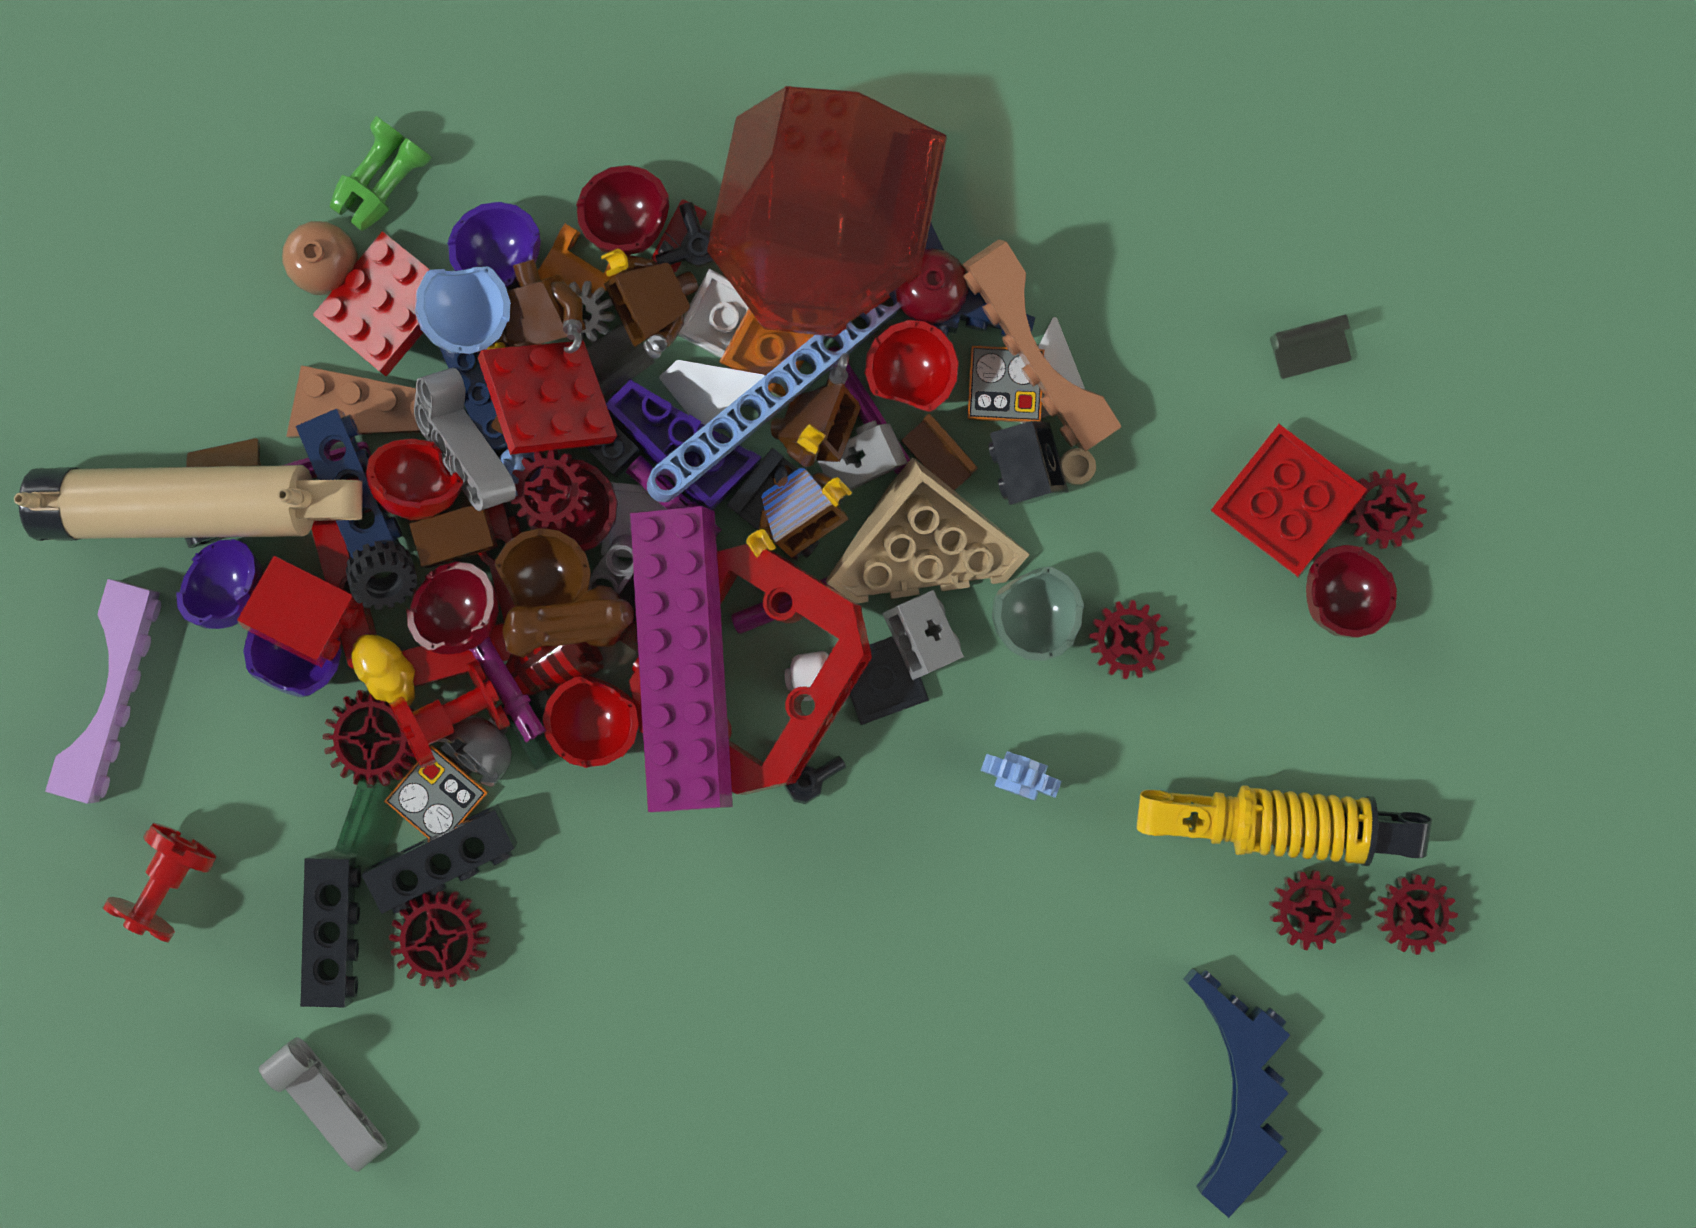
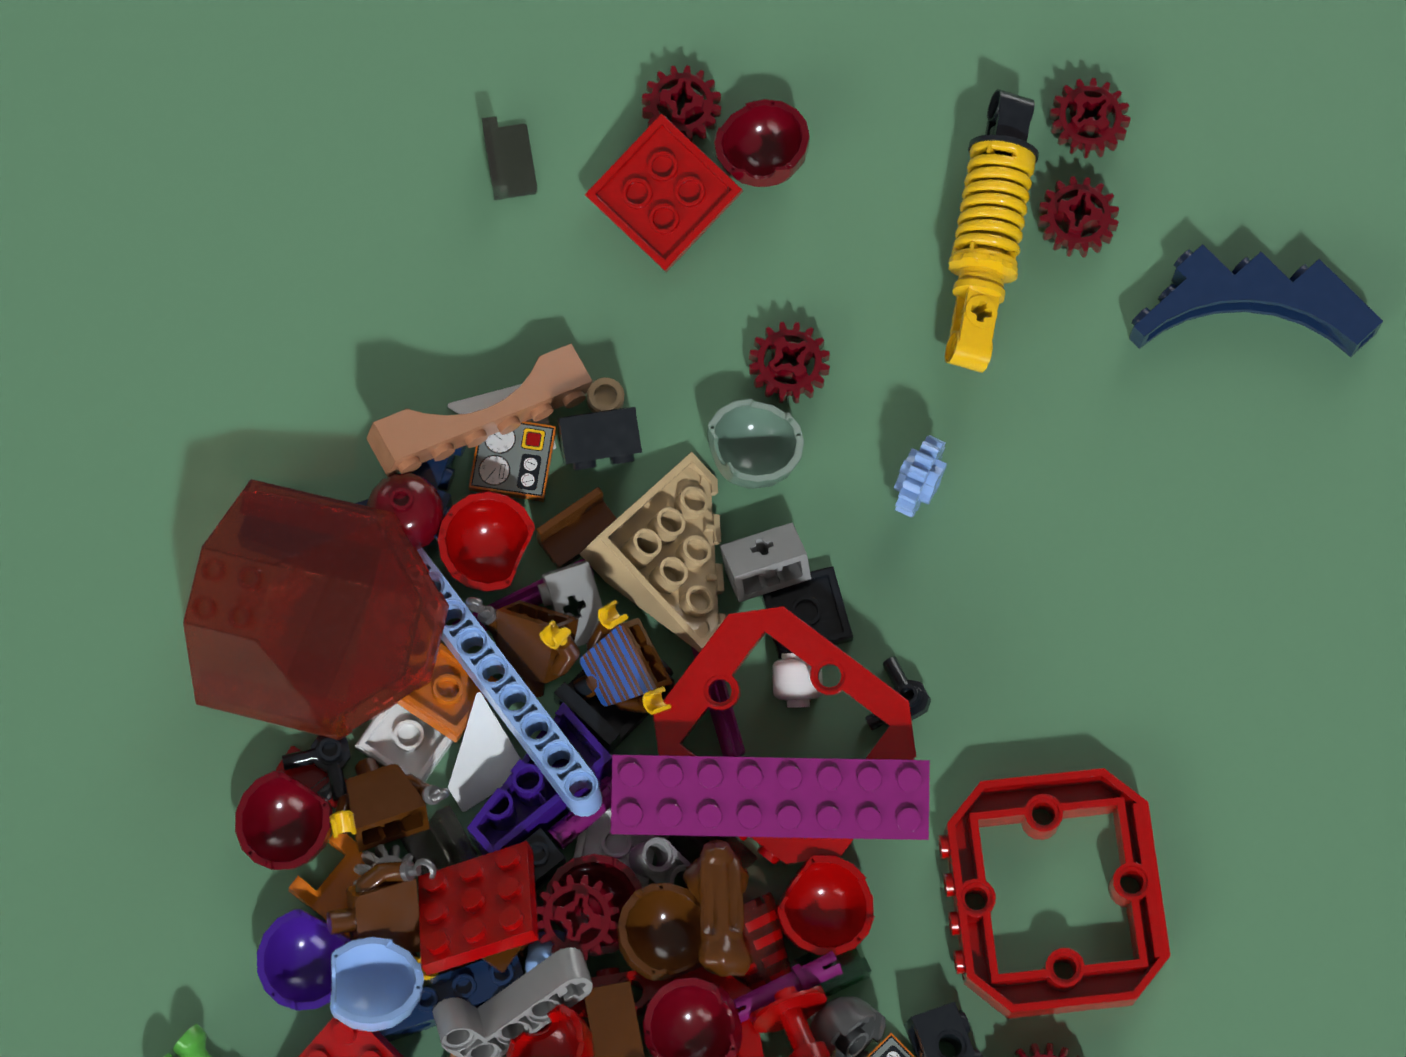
camera: 90 degrees left, 15 degrees down
(547, 973) = (1063, 797): none -> red panel

